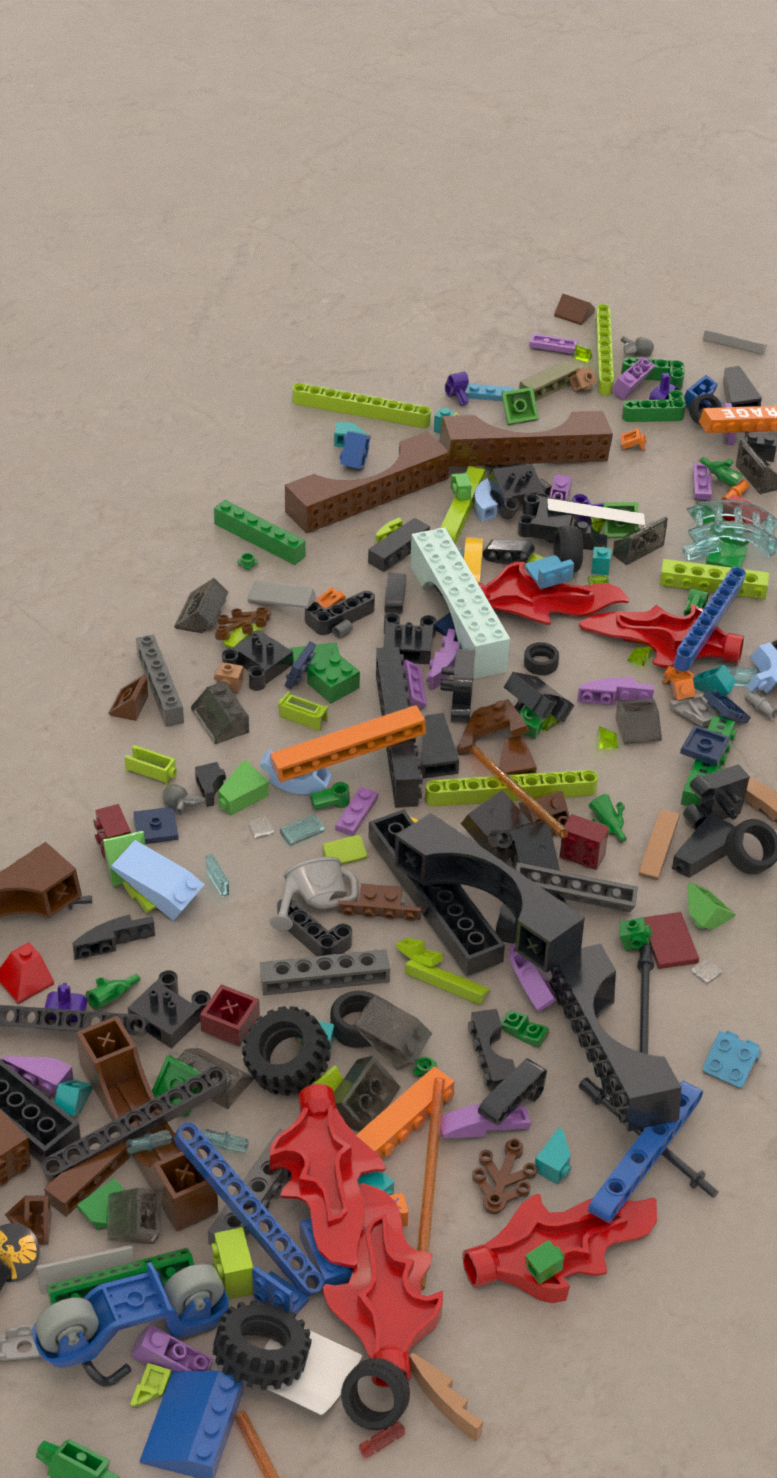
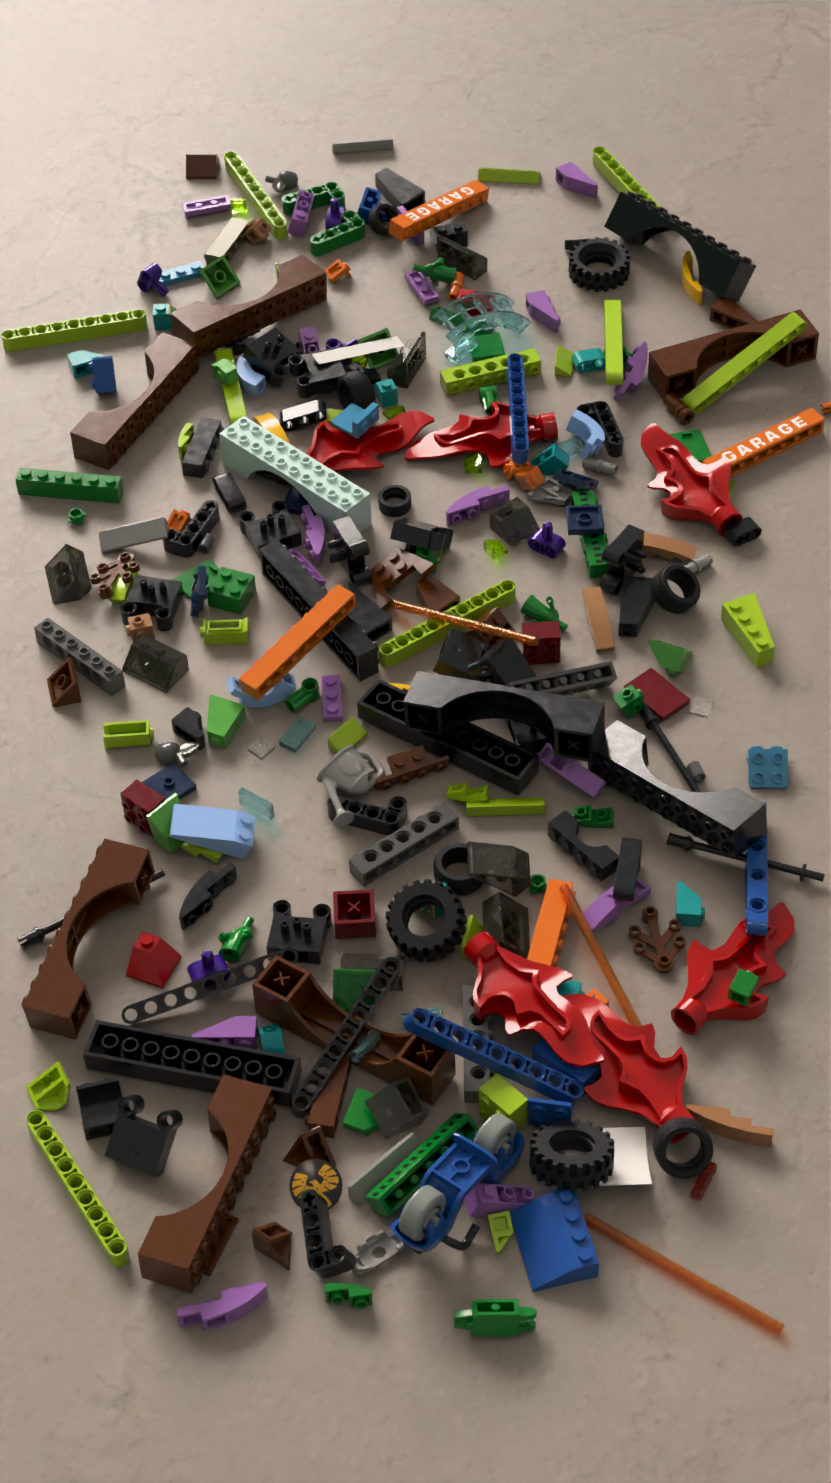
camera: 25 degrees left, 5 degrees up
(656, 1031) = (696, 771): none -> dark grey hinge
(659, 753) = (547, 542): none -> dark purple beam

